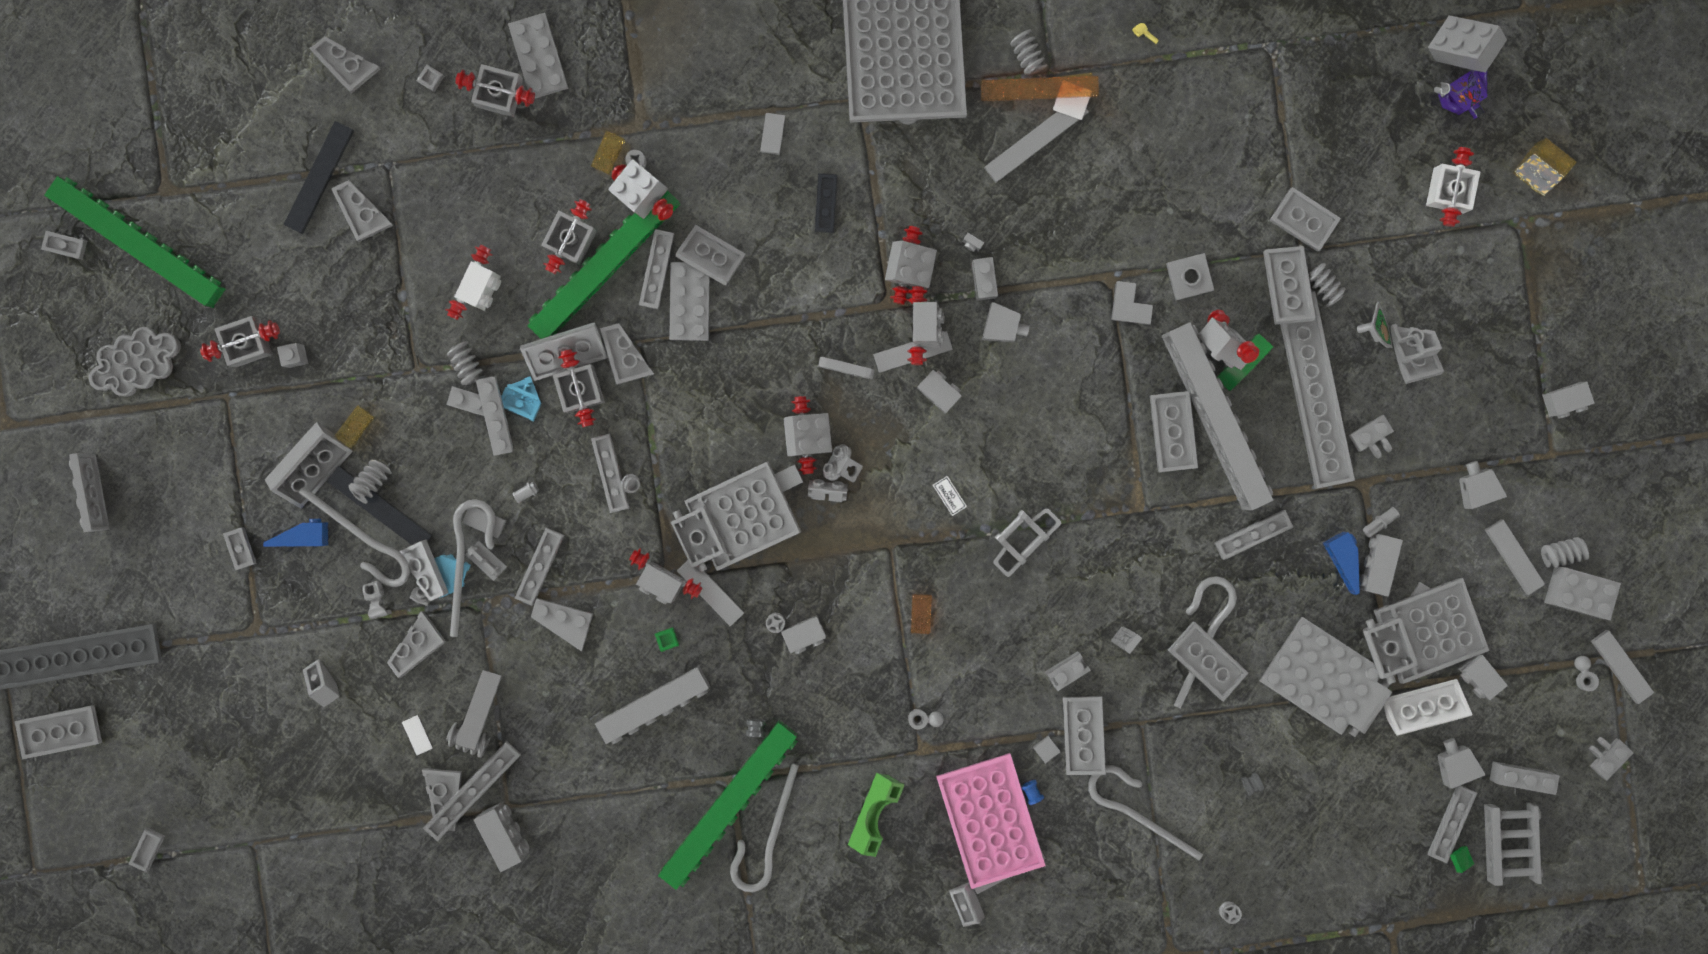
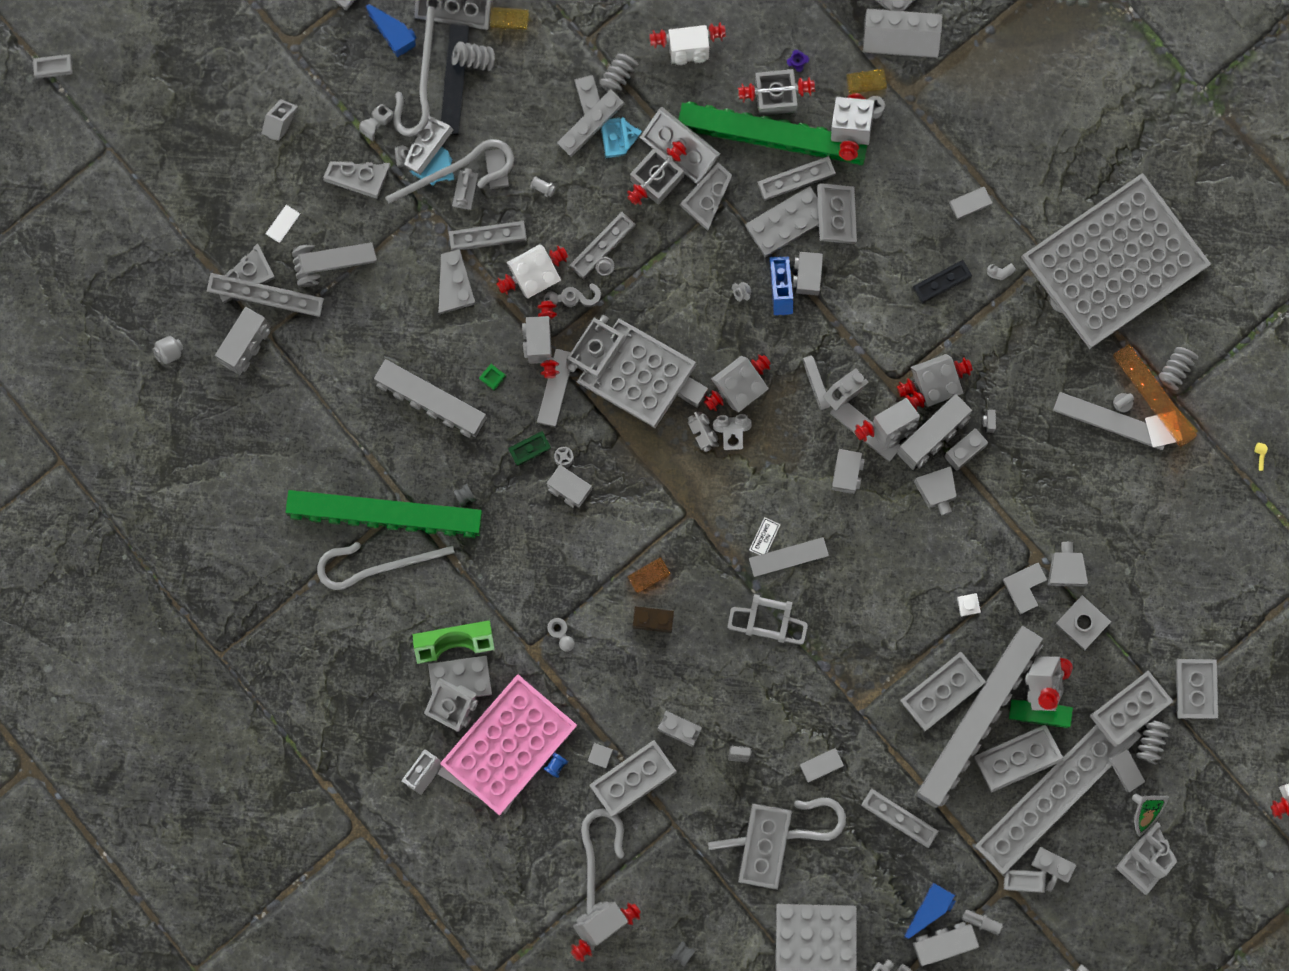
camera: 55 degrees right, 10 degrees down
(468, 902) = (167, 349): none -> light grey head
(557, 202) = (798, 65): none -> dark purple plate
(585, 93) = (902, 33): none -> light grey slope
(596, 548) = (533, 271): none -> white brick
(639, 528) = (571, 296): none -> light grey piece
(726, 380) = (741, 291): none -> light grey plate
(743, 343) = (781, 286): none -> blue slope
(747, 313) = (809, 273): none -> light grey brick
(749, 647) = (529, 448): none -> dark green plate
(851, 149) = (1000, 274): none -> light grey arm
(870, 347) = (848, 388): none -> light grey brick
(909, 826) = (468, 672): none -> light grey plate
(929, 849) = (451, 705): none -> light grey plate
(954, 295) = (933, 432): none -> light grey brick
(962, 635) = (653, 619): none -> dark brown brick
(980, 487) = (788, 557): none -> light grey tile
(1027, 118) = (1123, 402): none -> light grey plate
(1115, 362) = (968, 605): none -> white plate
(1137, 260) = (1067, 568): none -> light grey torso
(1170, 571) = (821, 765): none -> light grey tile
(1191, 840) = (600, 924): none -> light grey brick
(1269, 405) = (1018, 758): none -> light grey plate
(1334, 322) = (1126, 770): none -> light grey tile
(1371, 466) = (1025, 881): none -> light grey tile

